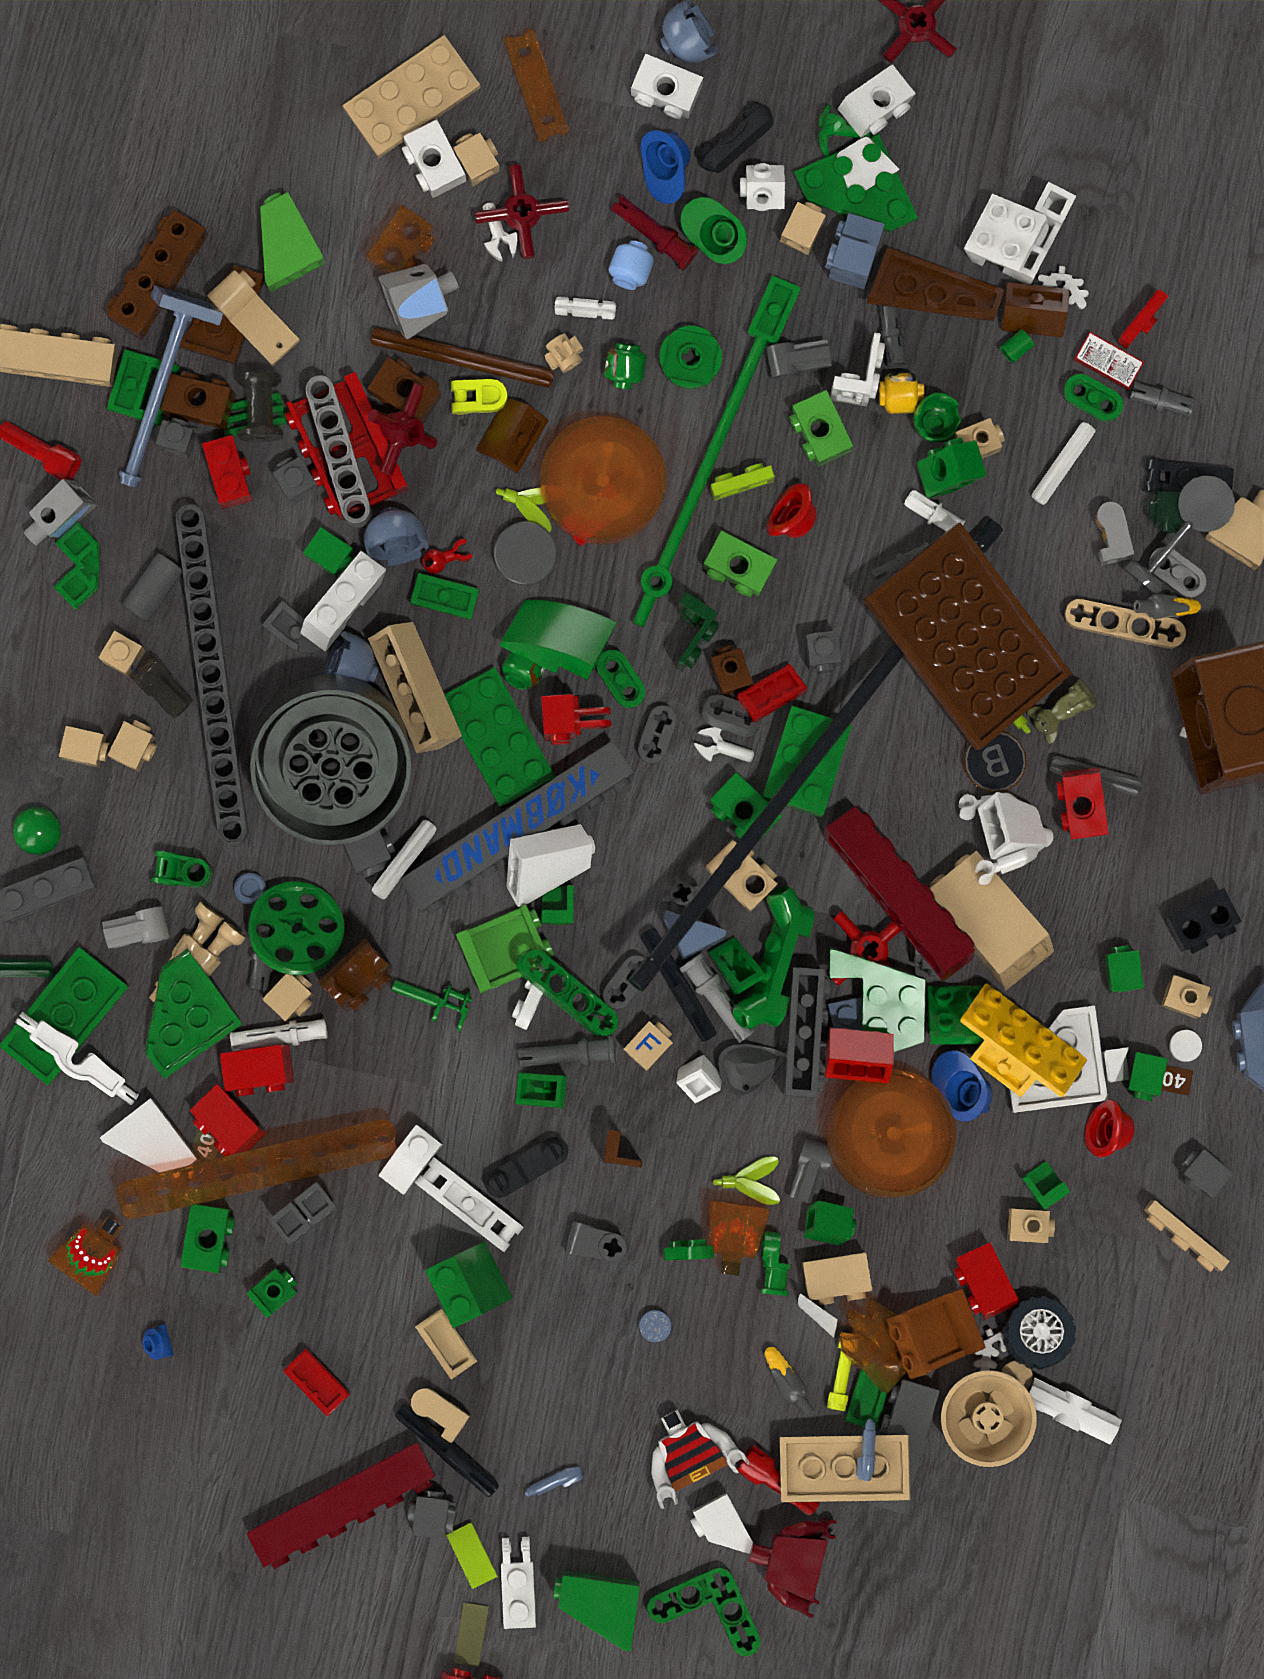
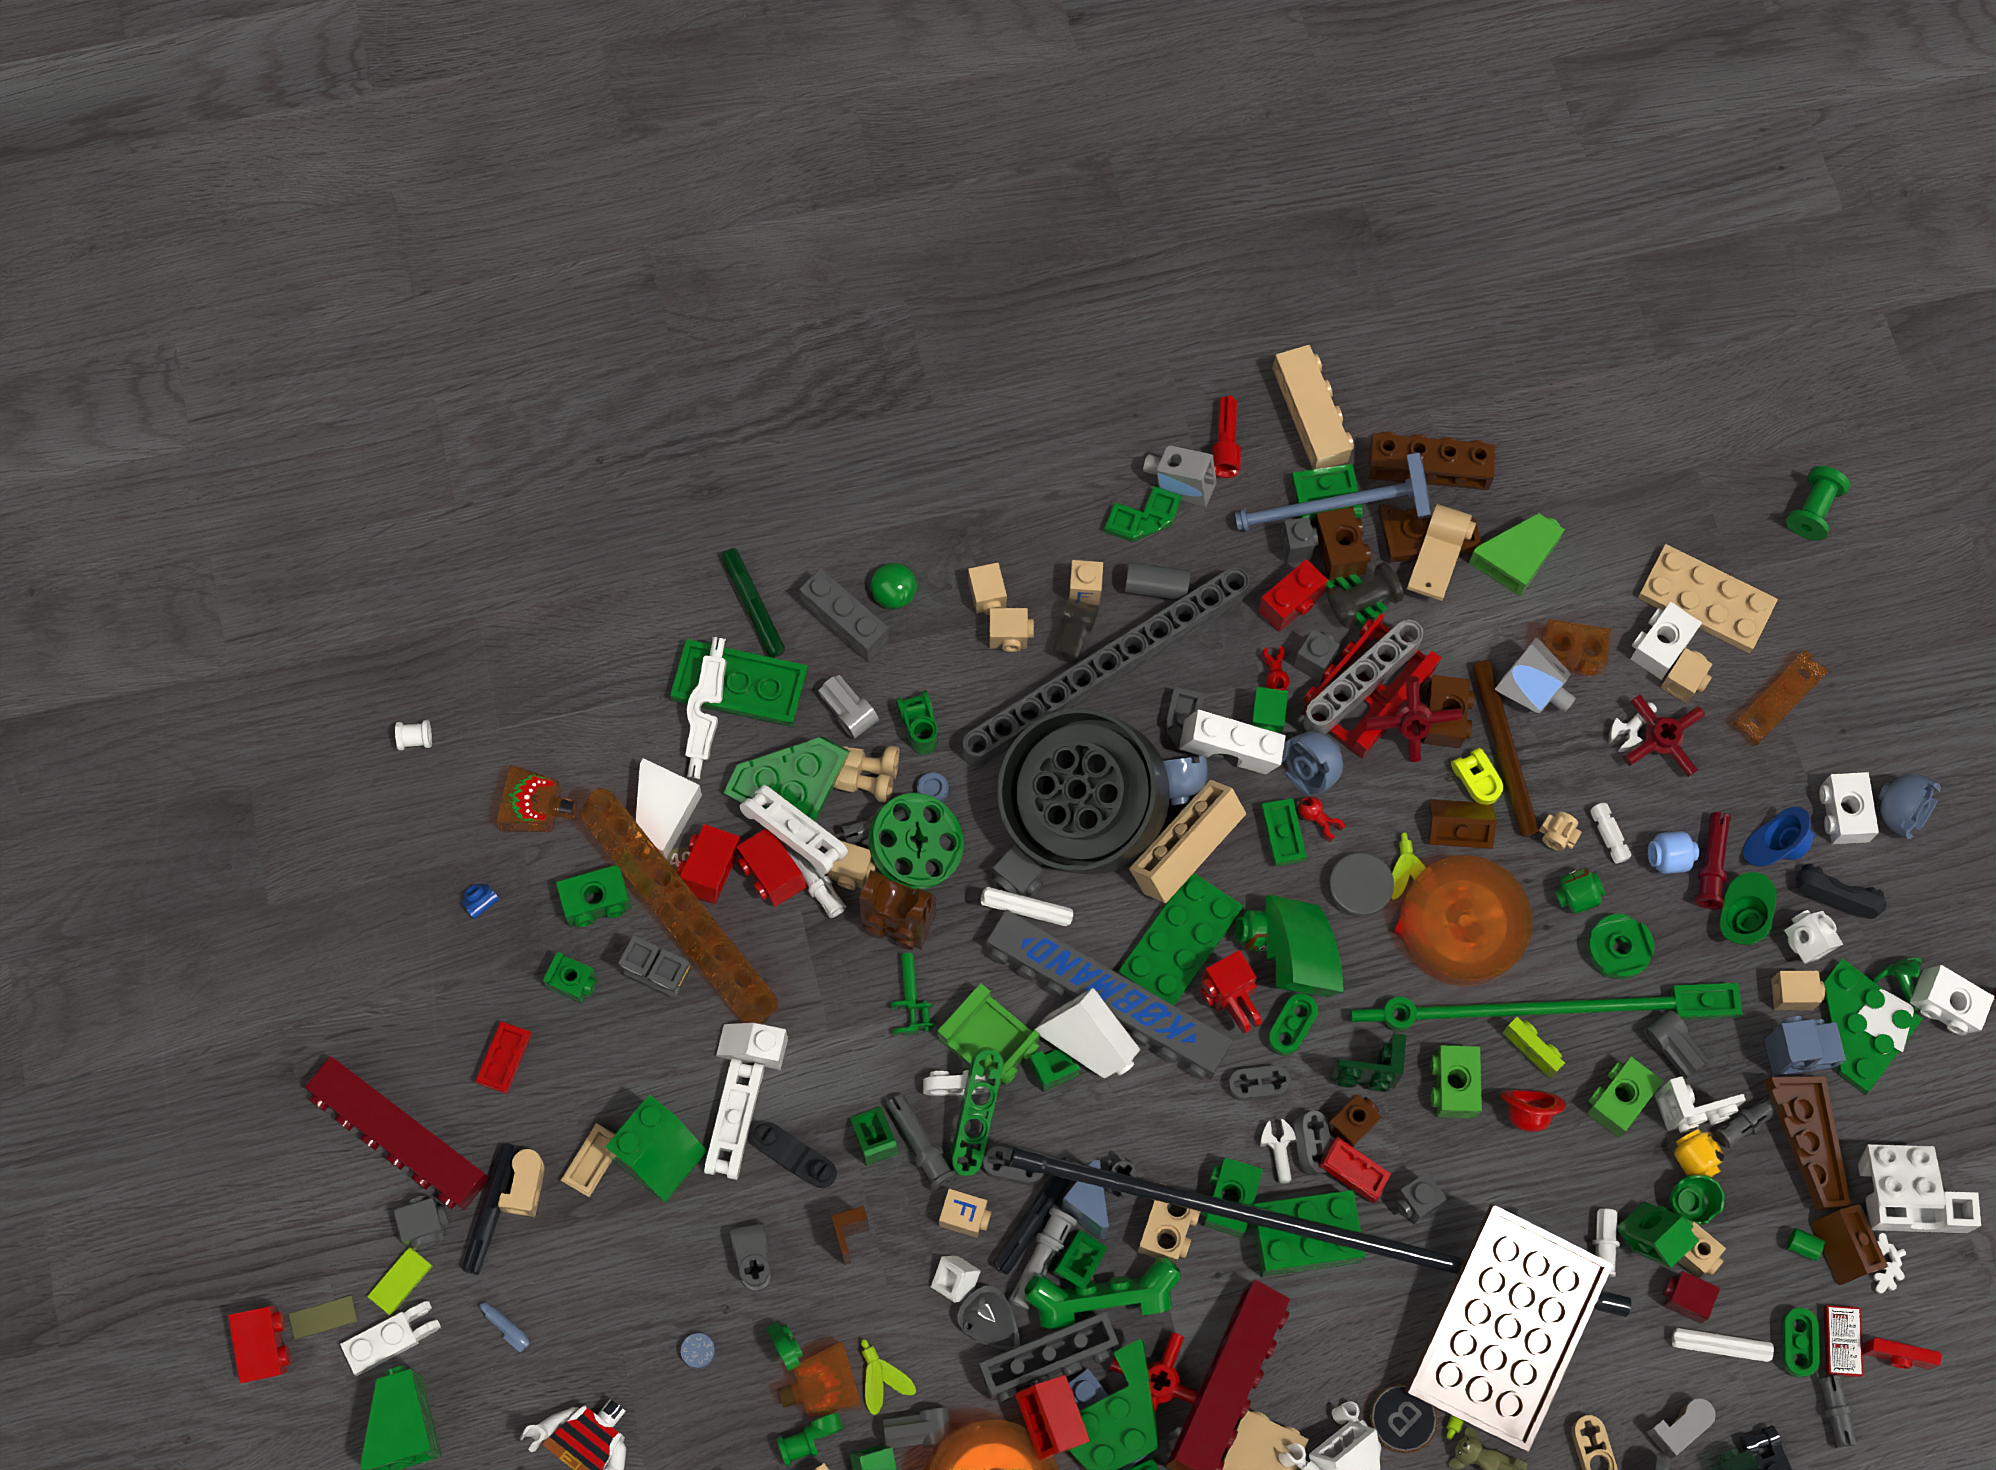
camera: 65 degrees right, 15 degrees down
(235, 1032) = (794, 828): none -> white plate
(296, 526) = (1276, 678): none -> red arm
(1012, 468) = (1690, 1296): none -> dark red brick

